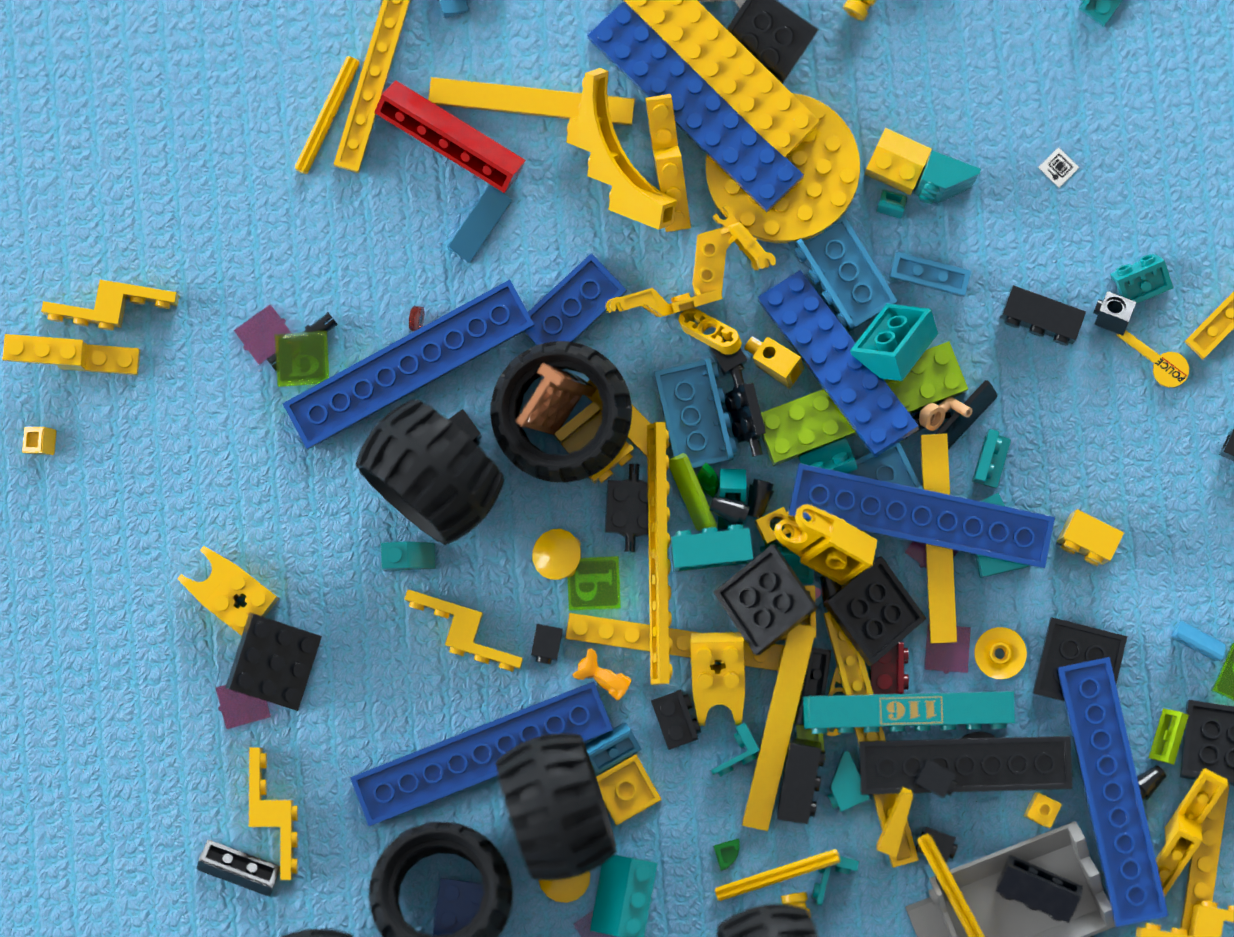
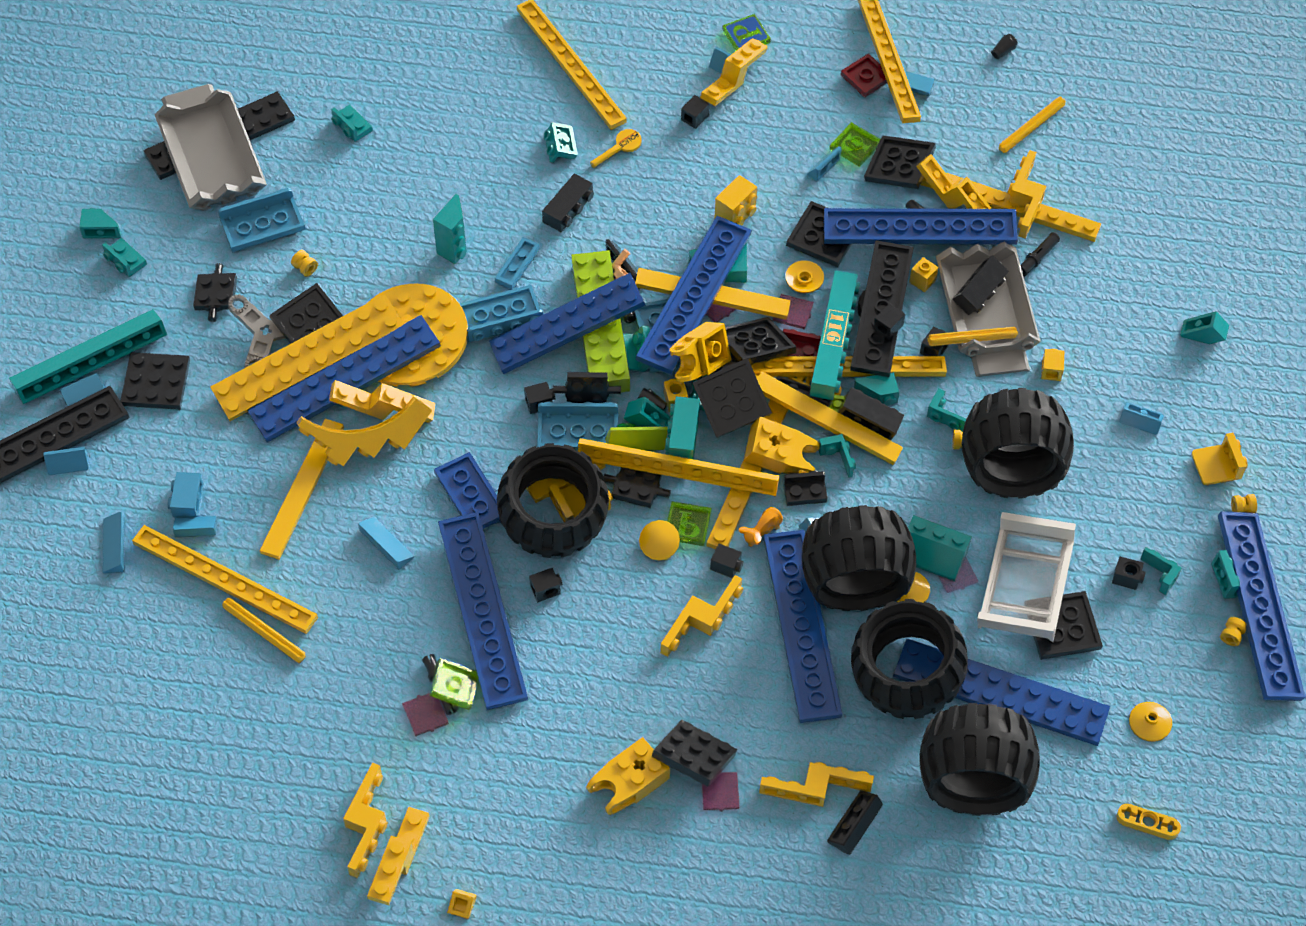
camera: 75 degrees left, 25 degrees down
(407, 556) = (632, 646): teal slope -> none
(416, 318) = (447, 598): clear red tile -> none
(430, 471) = (575, 591): black tyre -> none
(449, 136) = (311, 543): red brick -> none
(554, 399) = (533, 491): nougat fence -> none
(707, 272) = (473, 391): yellow piece -> none
(715, 339) = (523, 386): yellow beam -> none
(727, 853) = (913, 478): green tile -> none
(730, 510) = (658, 411): black cone -> none
(777, 875) = (938, 443): yellow axle -> none
(783, 366) = (553, 365): yellow torso -> none
(891, 204) = (459, 276): teal slope -> none
(893, 830) = (919, 359): yellow piece -> none
(895, 340) = (561, 281): teal slope -> none
(897, 161) = (430, 265): yellow slope -> none
(991, 459) = (661, 254): teal bracket -> none
(1058, 167) = (464, 176): white sticker -> none
(1119, 319) = (579, 159): black brick -> none
(1171, 737) = (884, 199): lime tile -> none

